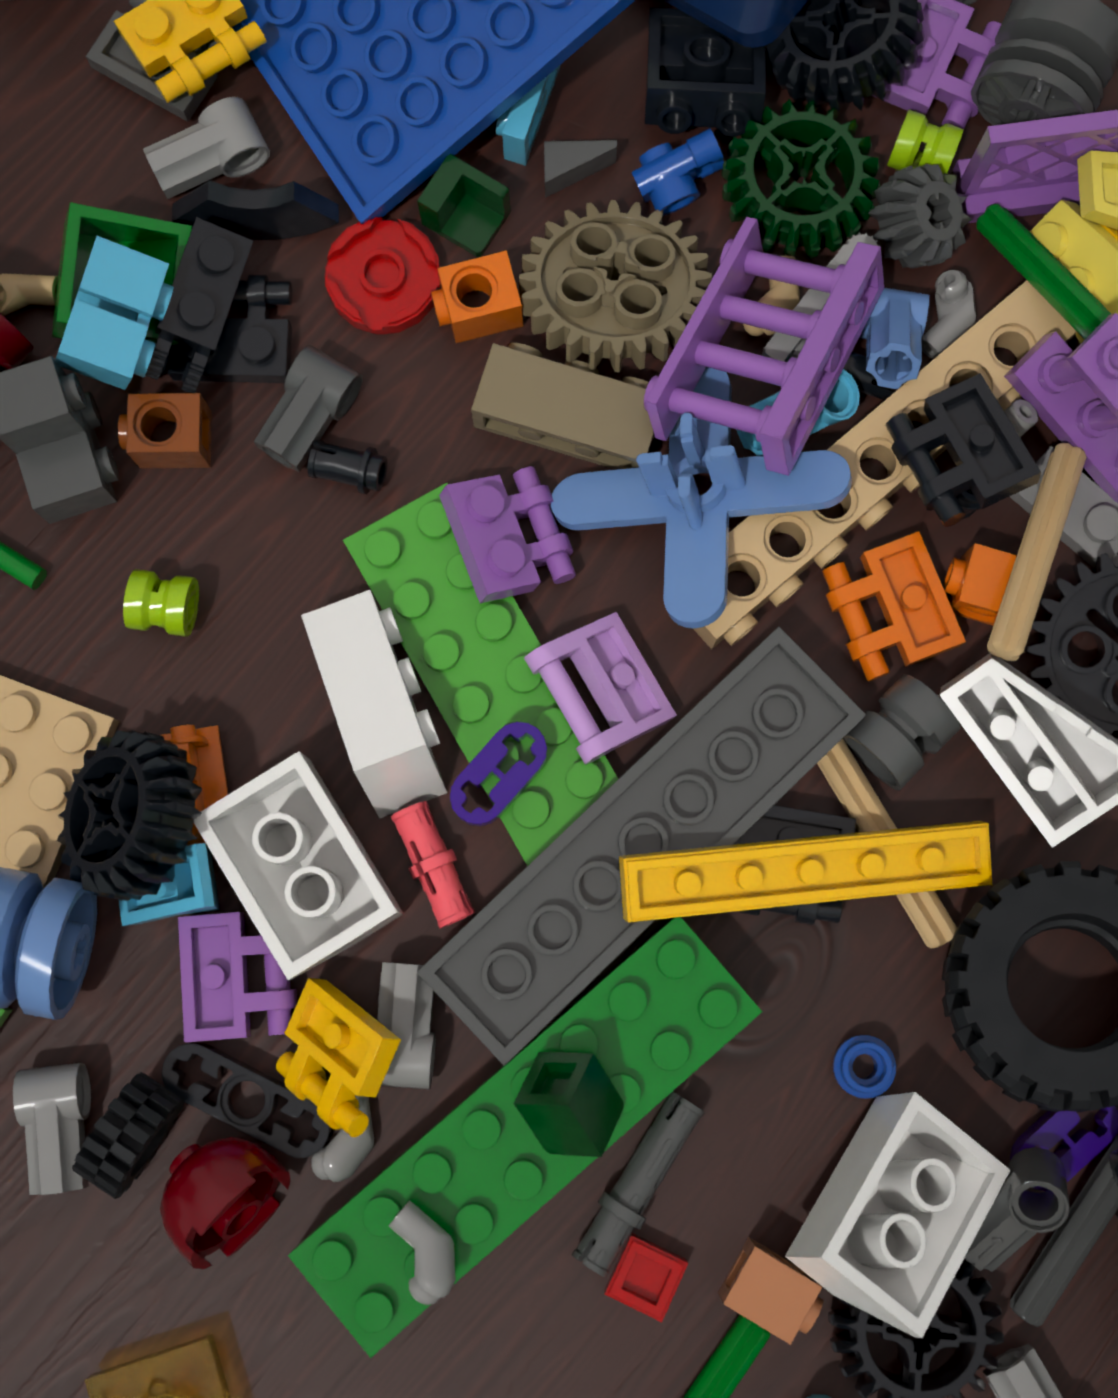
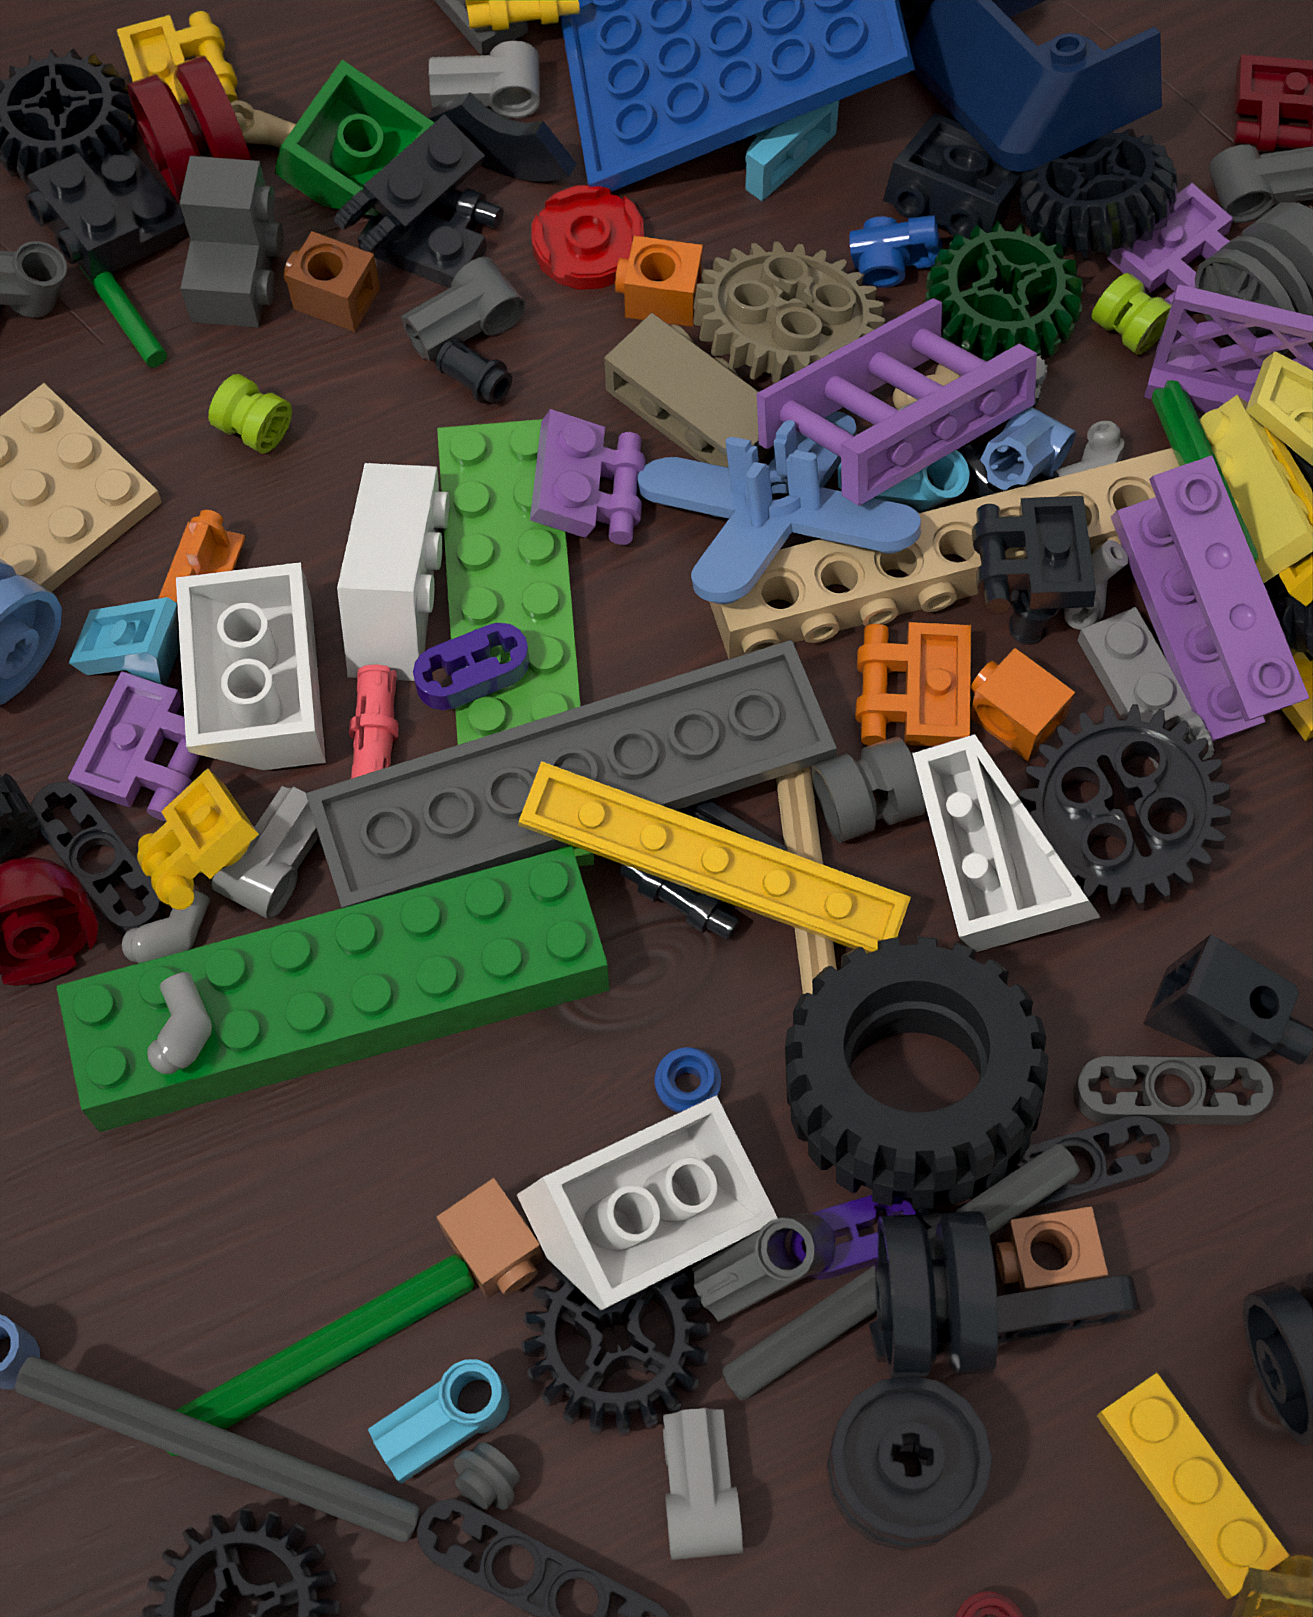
camera: 25 degrees right, 15 degrees down
(114, 313) = (321, 163): medium azure piece -> none
(129, 815) = (124, 557): black gear -> none
(464, 205) = (687, 202): dark green panel -> none
(569, 1103) = (381, 949): dark green panel -> none
(574, 160) = (805, 209): dark grey piece -> none
(615, 678) = (622, 633): lavender plate -> none
(638, 1183) = (403, 1096): dark grey pin -> none
(646, 1277) = (380, 1182): red tile -> none
(920, 216) = (1098, 363): dark grey gear -> none
(1036, 552) = (1067, 673): tan axle -> none

